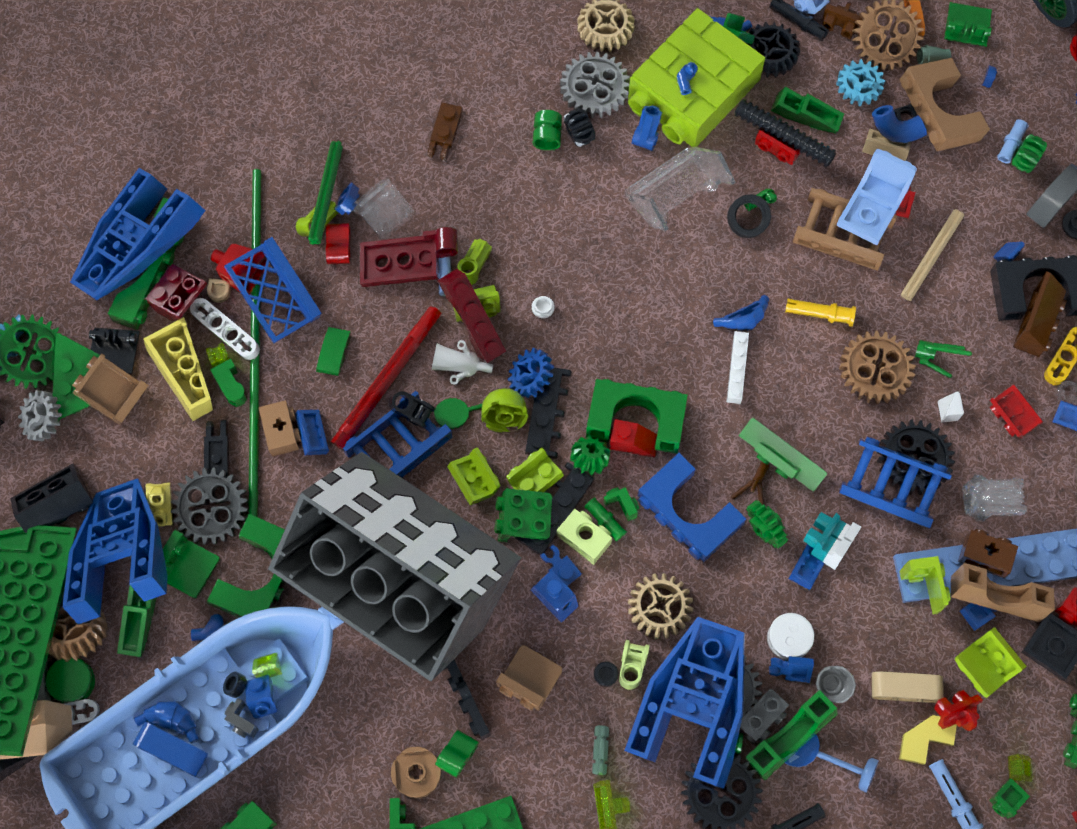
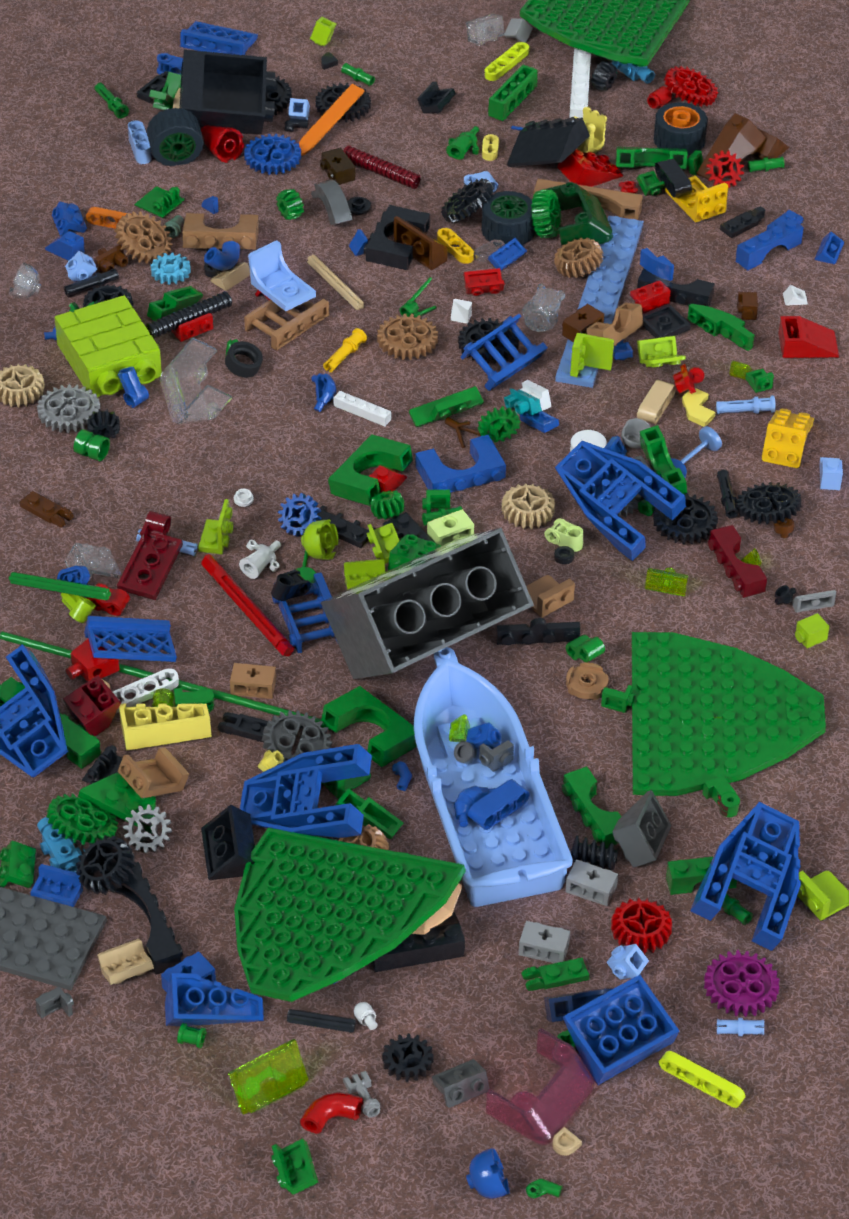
camera: 70 degrees left, 25 degrees down
(311, 432) = (277, 661): blue plate -> none
(333, 351) = (206, 631): green slope -> none
(468, 306) = (217, 512): dark red arch -> none
(475, 259) = (181, 524): lime piece -> none
(600, 750) = (621, 574): sand green axle -> none
(684, 76) = (112, 339): blue arm -> none
(1012, 141) = (272, 212): light blue pin -> none

